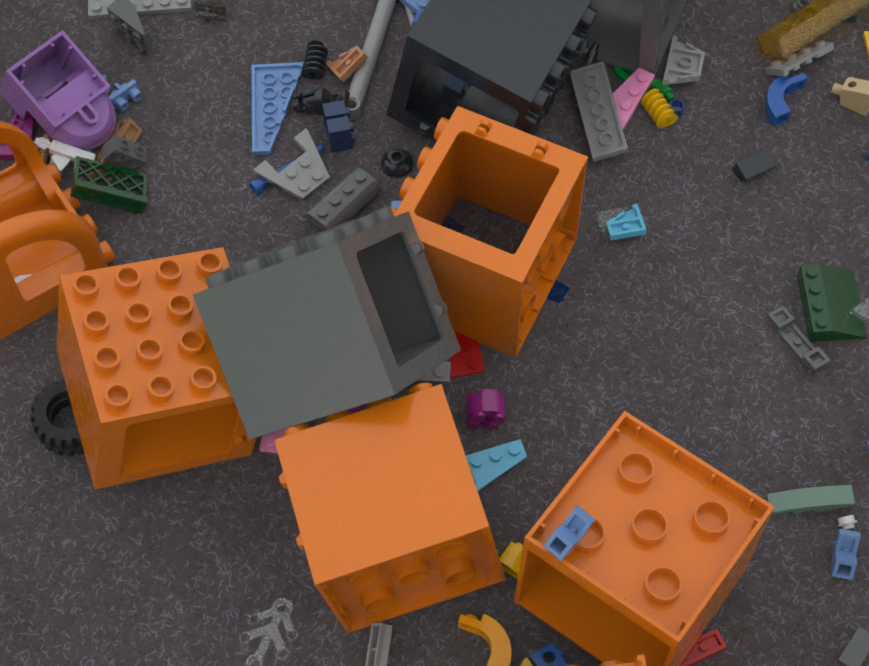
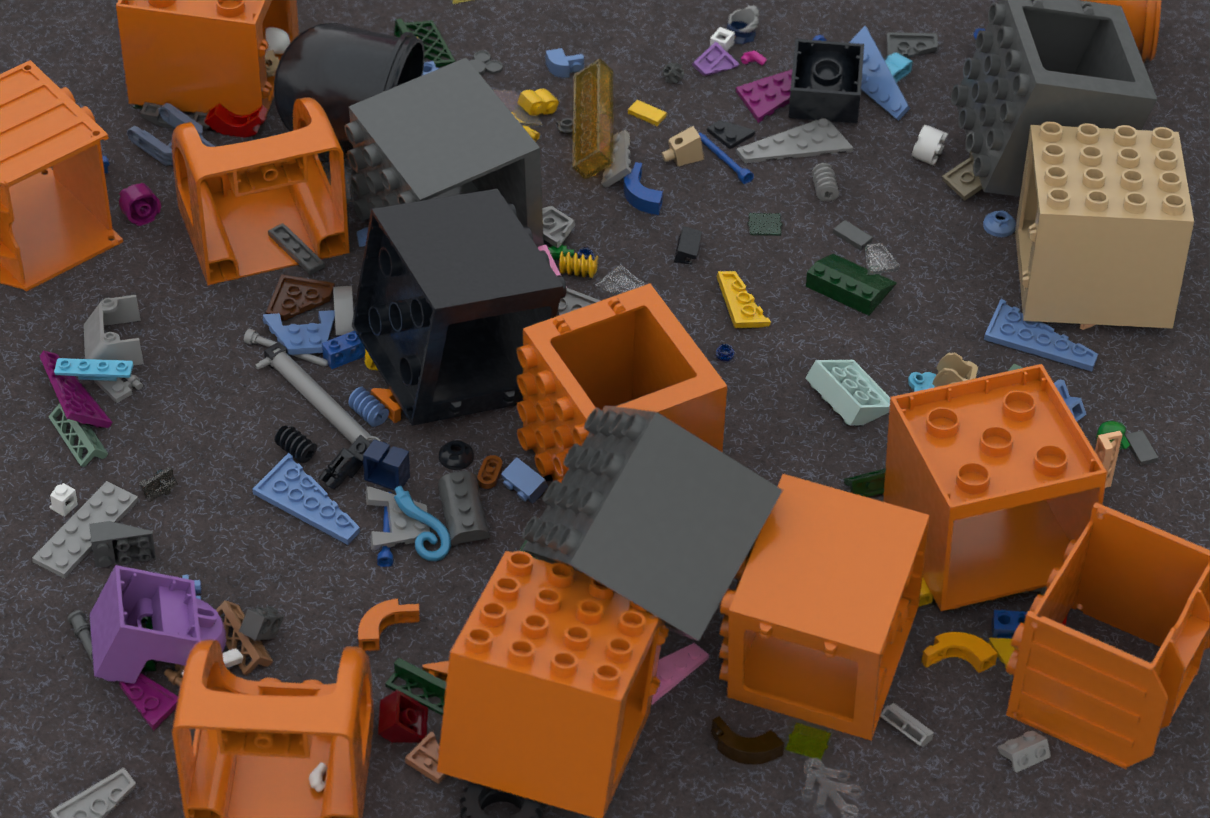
camera: 55 degrees left, 15 degrees down
(108, 194) = (287, 652): dark green fence -> none
(191, 219) = (381, 617): none -> orange arch
(267, 556) = (743, 749): none -> dark brown arch
(304, 588) = (808, 741): none -> clear neon green piece
(306, 164) = (409, 508): none -> dark azure plant
(347, 63) = (326, 422): nougat wing -> none
(387, 77) = (368, 407): none -> medium blue piece
(392, 192) = (489, 473): none -> dark orange plate
(570, 533) = (973, 476): medium blue brick -> none
(665, 266) = (725, 352): none -> clear blue plate
(670, 149) = (619, 281): none -> clear wing
(707, 381) = (849, 390): none -> light aqua slope
(727, 245) = (739, 302): none -> yellow wing
(769, 435) = (921, 381): none -> medium azure plate
(781, 453) = (953, 370): none -> tan piece
(783, 631) = (1108, 453): none -> light nougat fence
(796, 341) = (864, 321): dark grey slope -> none
(836, 203) = (764, 224): none -> piece
(846, 615) = (1113, 426): none -> green piece

